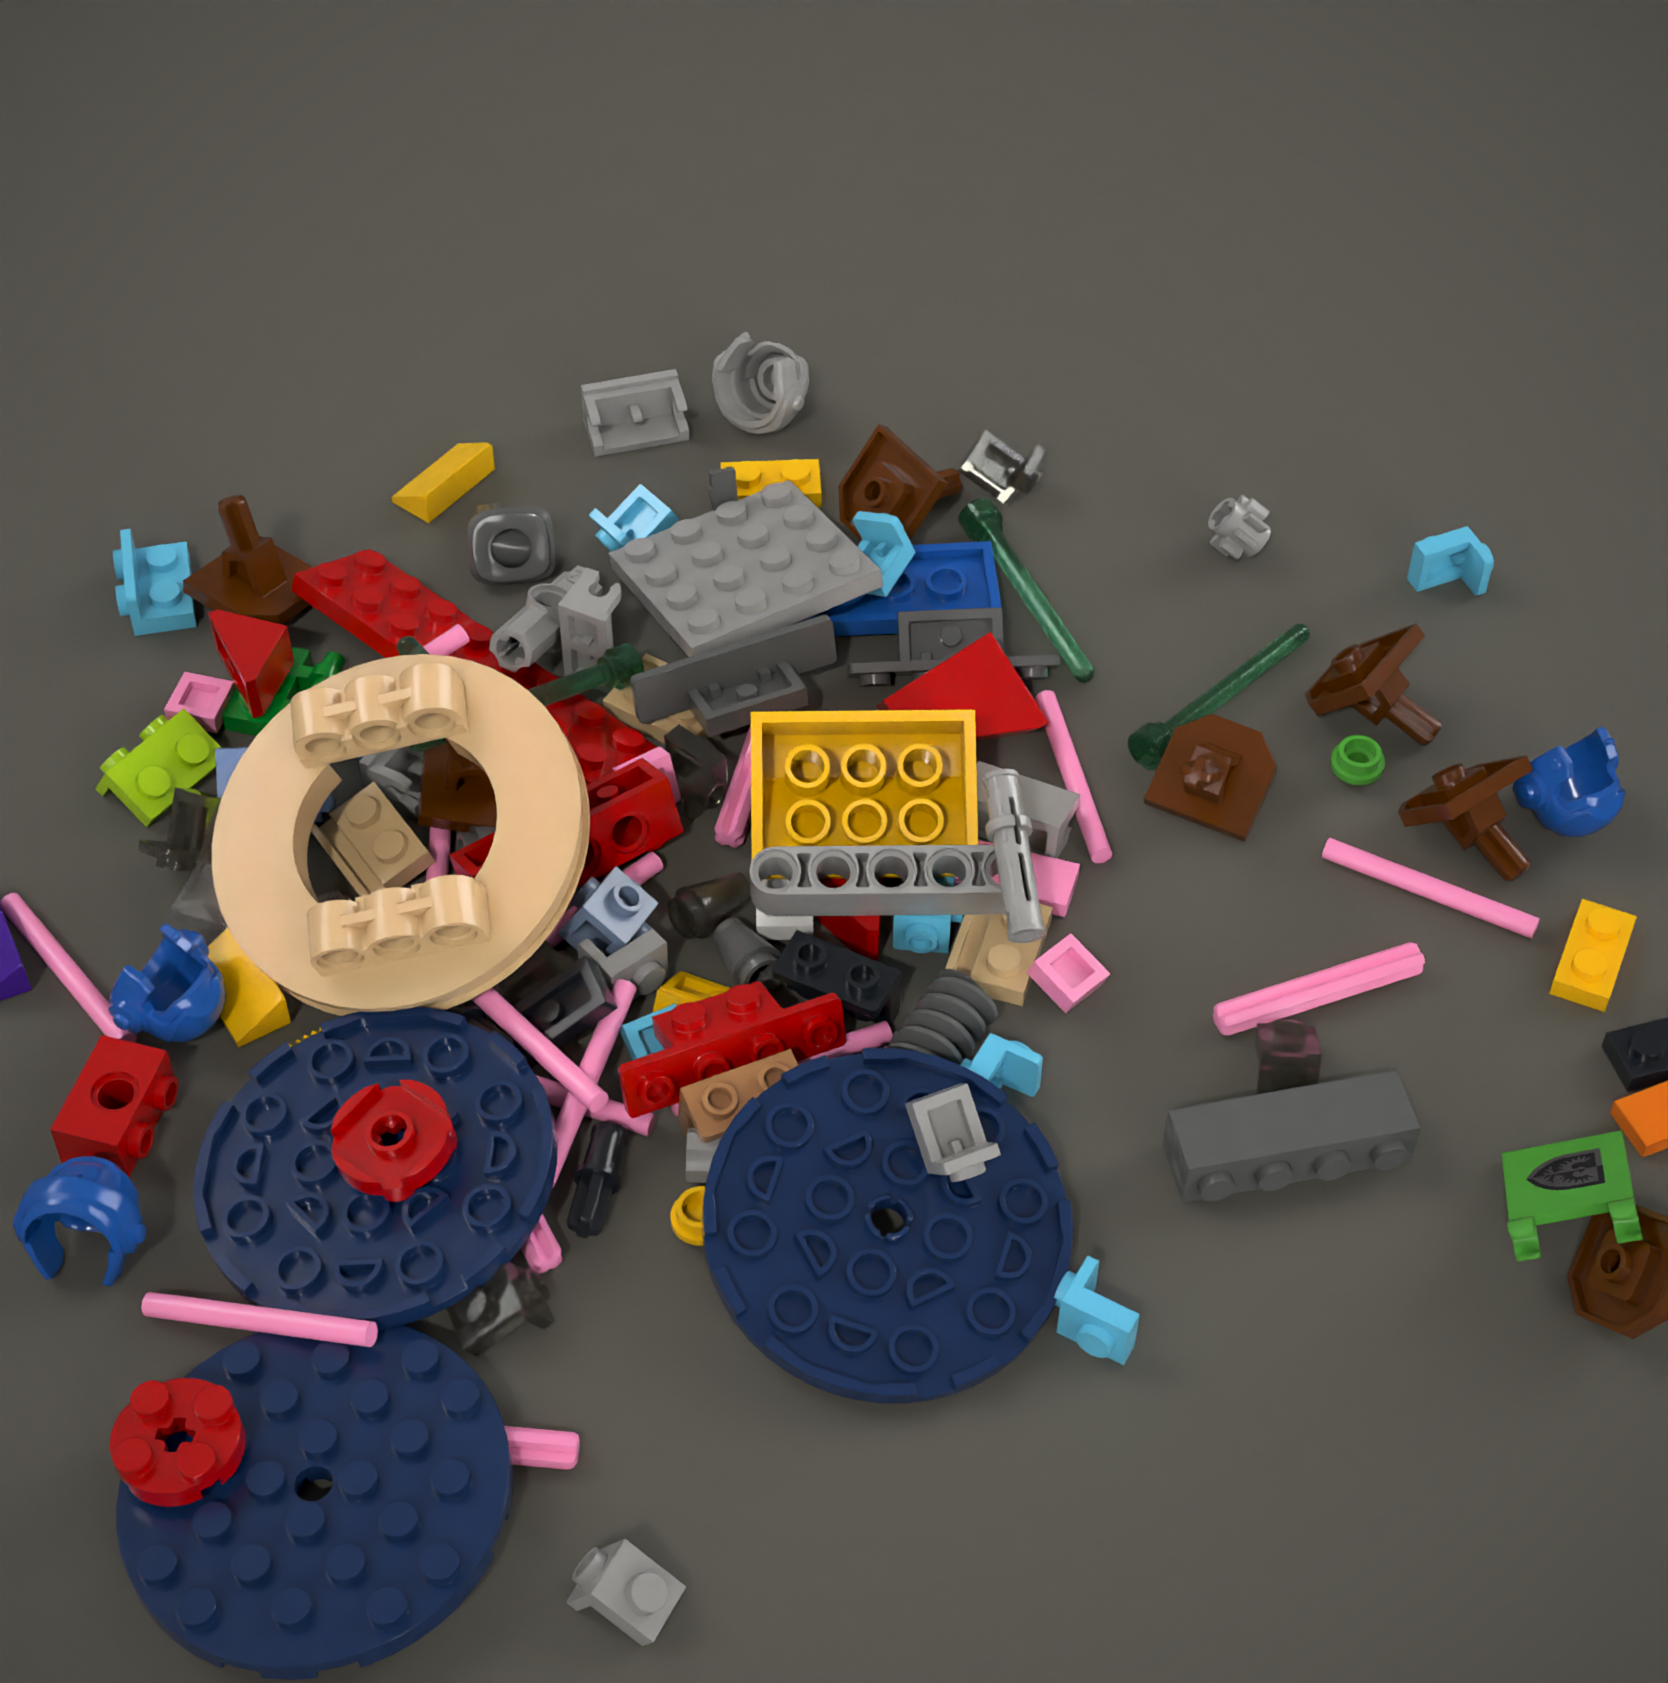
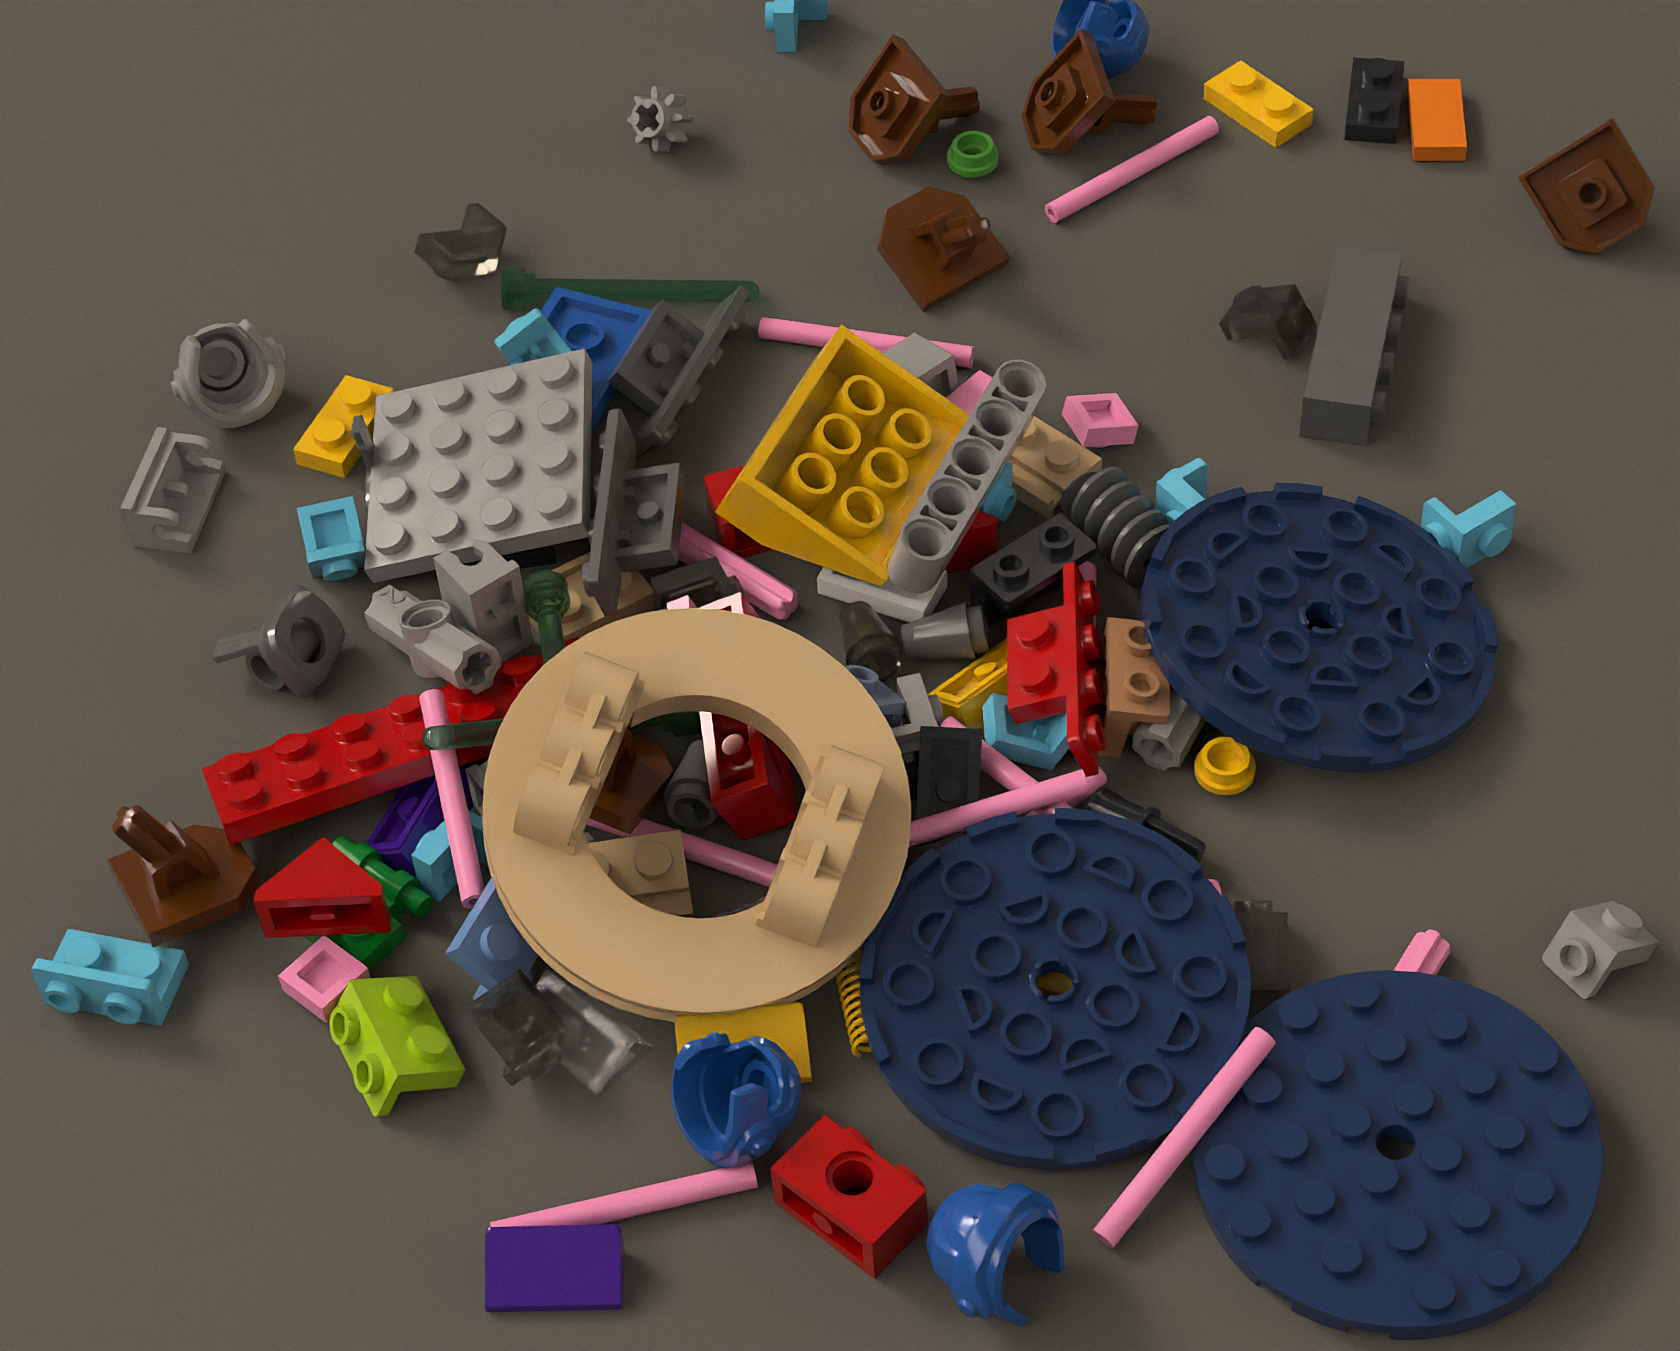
camera: 60 degrees left, 0 degrees up
(167, 1408) = (1321, 1266): red plate -> none
(397, 1168) = (1053, 976): red plate -> none
(446, 480) = (138, 679): yellow slope -> none
(893, 481) = (447, 326): reddish brown piece -> none
(951, 1133) = (1282, 532): light grey bracket -> none
(979, 681) = (749, 368): red slope -> none
(1010, 833) = (1021, 362): light grey pin -> none
(1151, 740) = (869, 269): clear green piece -> none
(1318, 988) = (1201, 275): bright pink axle -> none
(1568, 1183) = (1495, 192): bright green flag -> none

